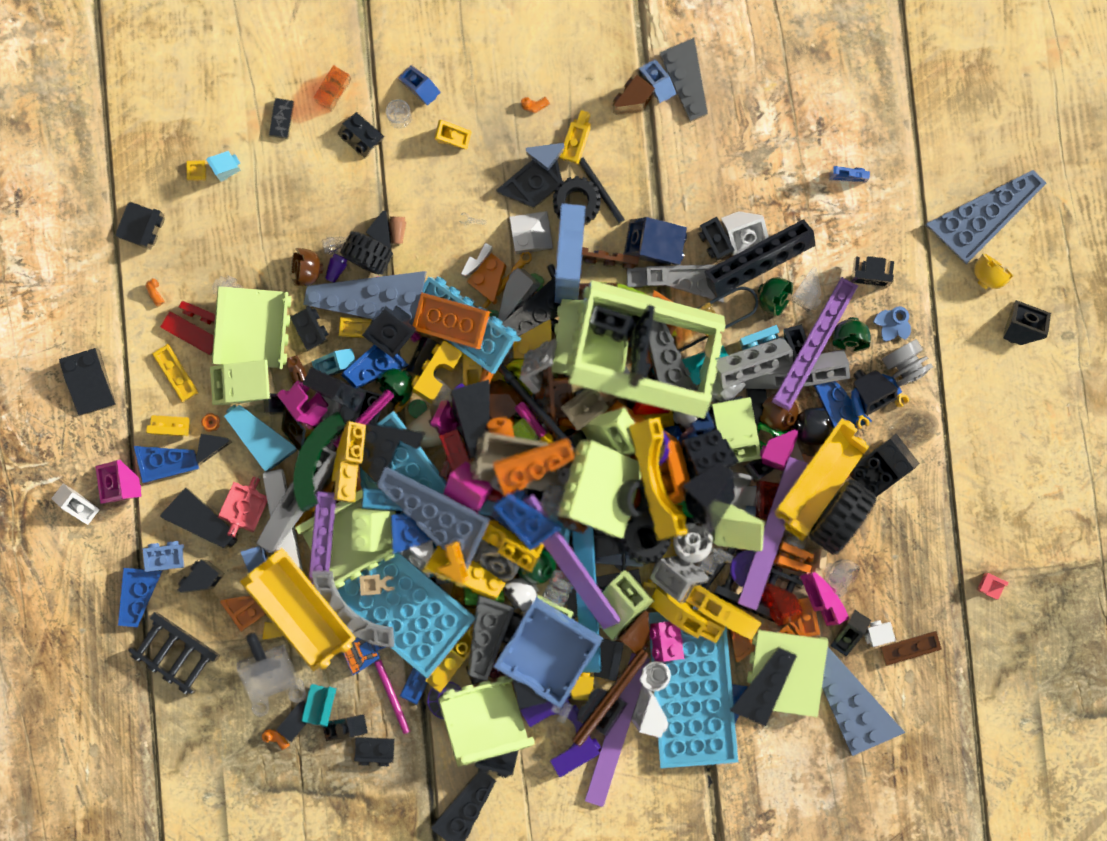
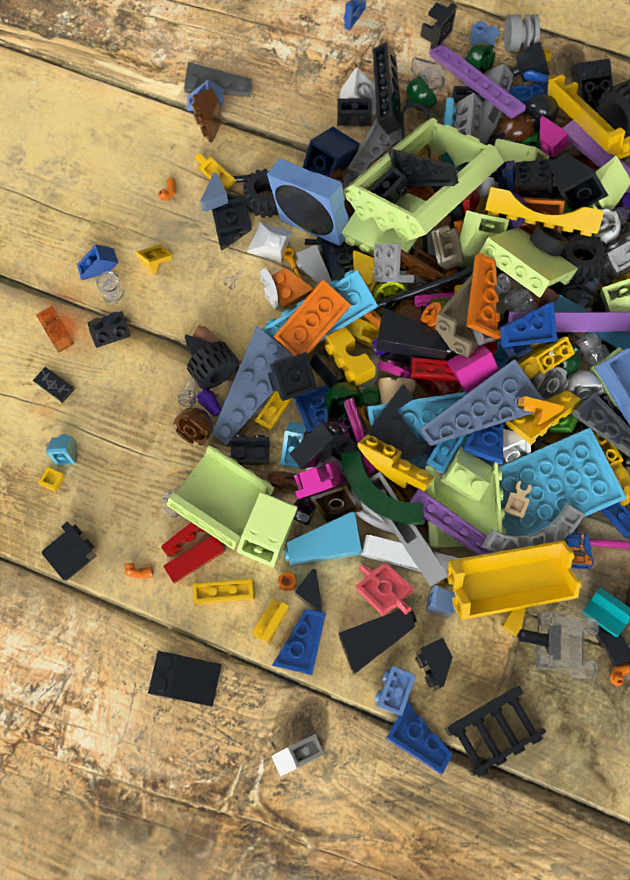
camera: 65 degrees left, 15 degrees down
(117, 482) = (298, 700): dark pink slope -> none
(243, 611) = (483, 638): orange wing -> none

